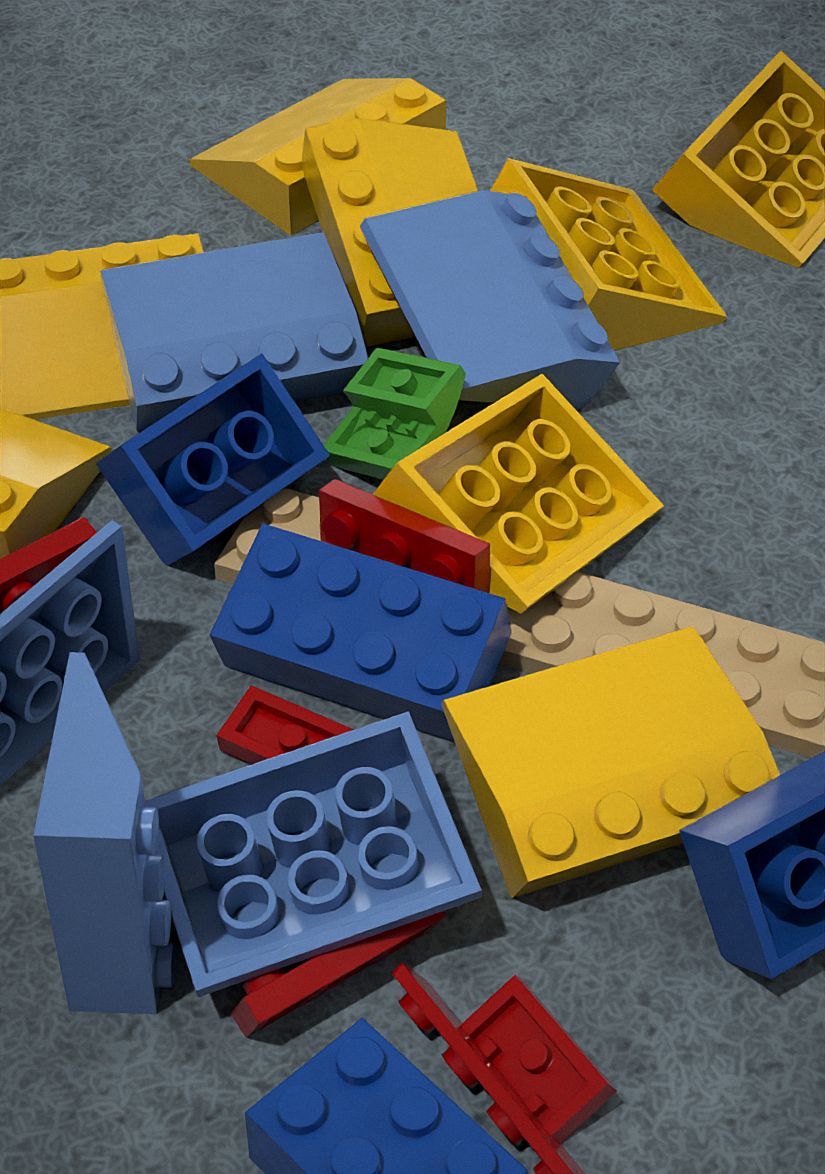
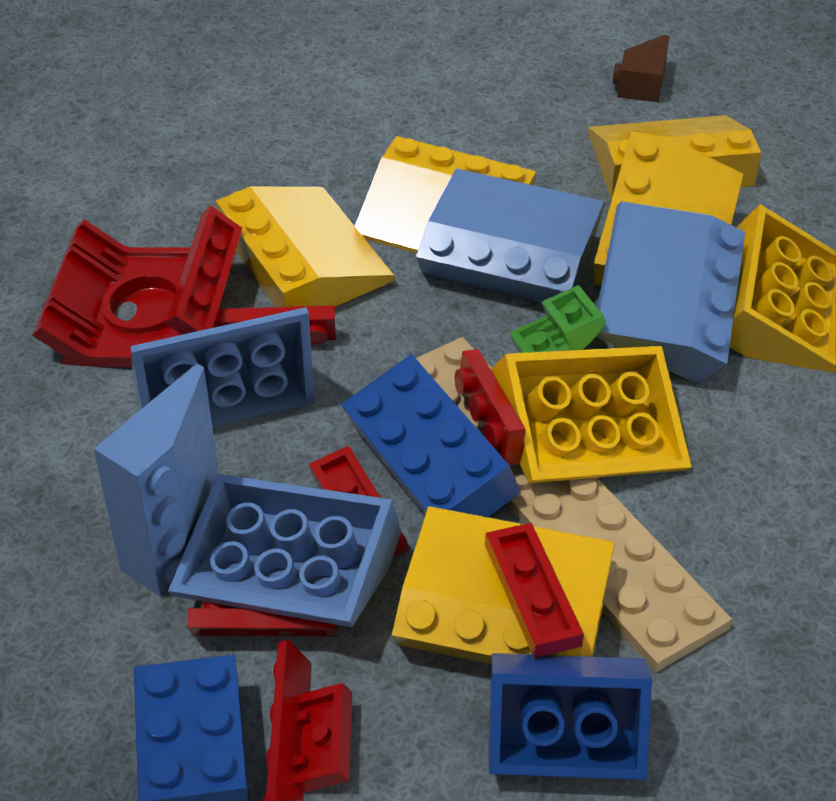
camera: 35 degrees right, 0 degrees up
(206, 62) = (642, 70): none -> reddish brown slope
(213, 460) = (430, 306): blue brick -> none
(671, 726) = (533, 590): none -> red plate

